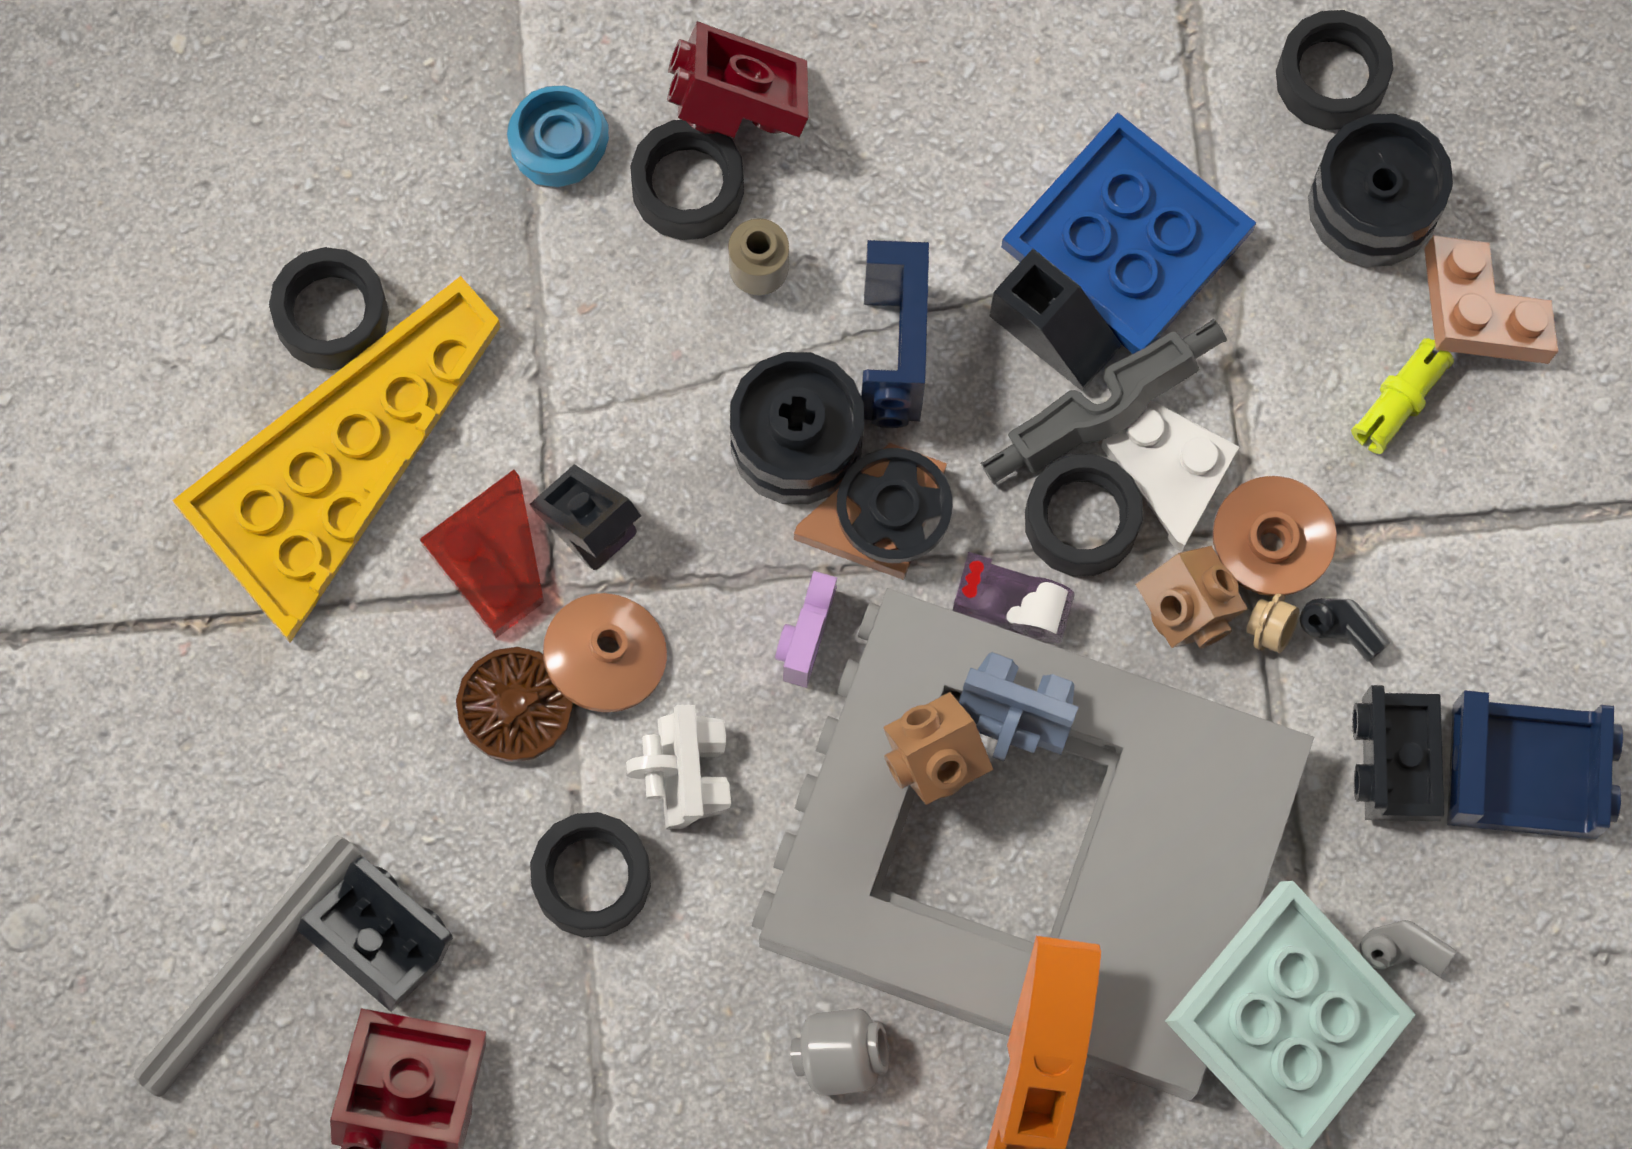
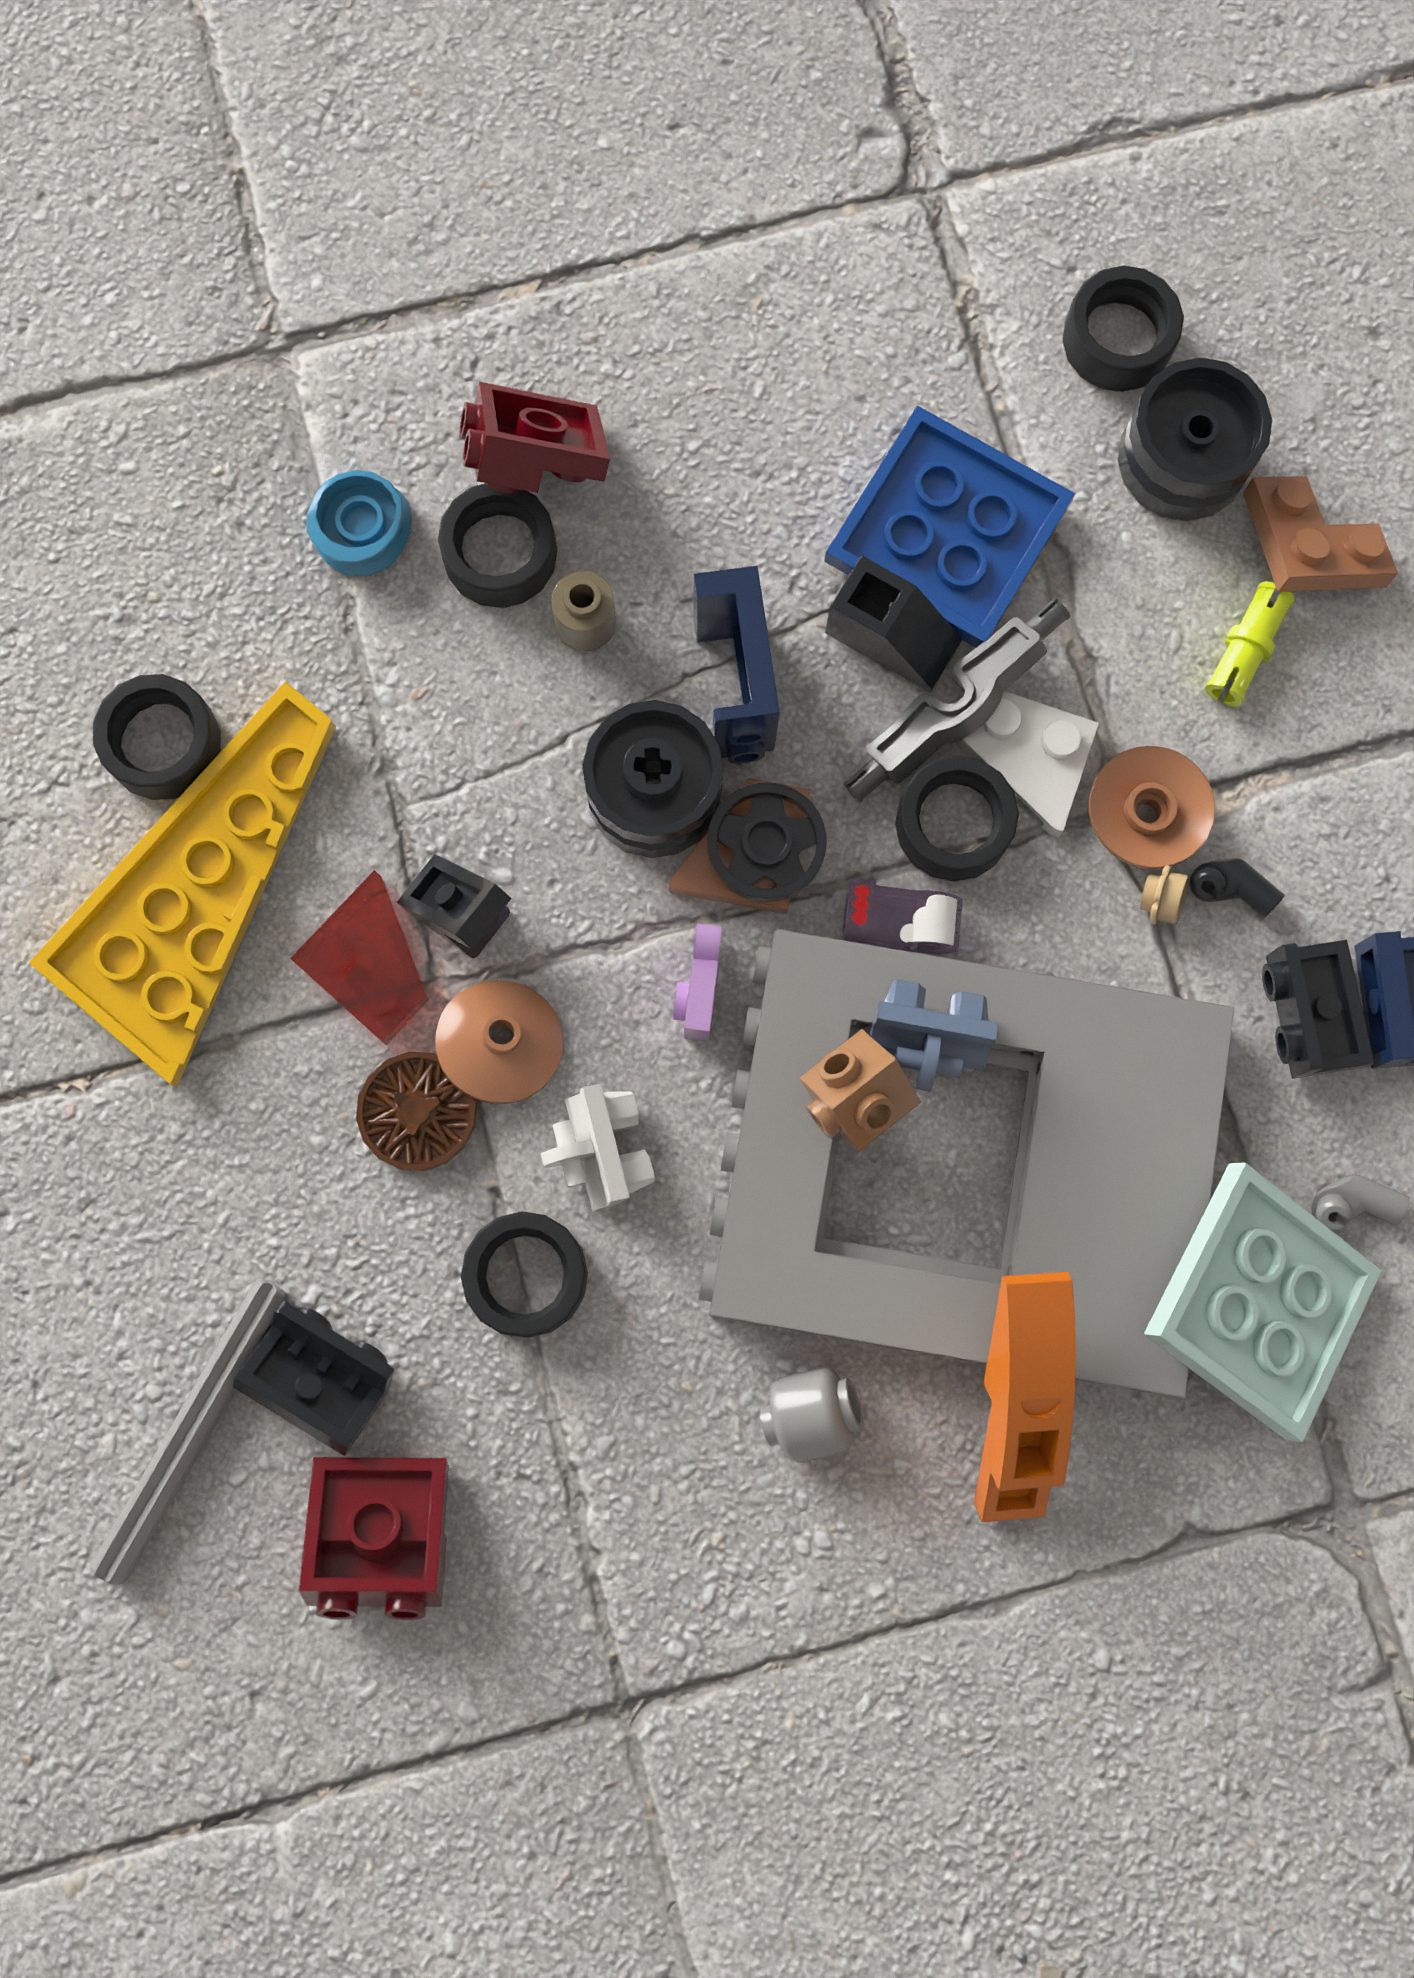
camera: 10 degrees left, 5 degrees up
(1192, 598) = (1083, 885): medium nougat brick -> none

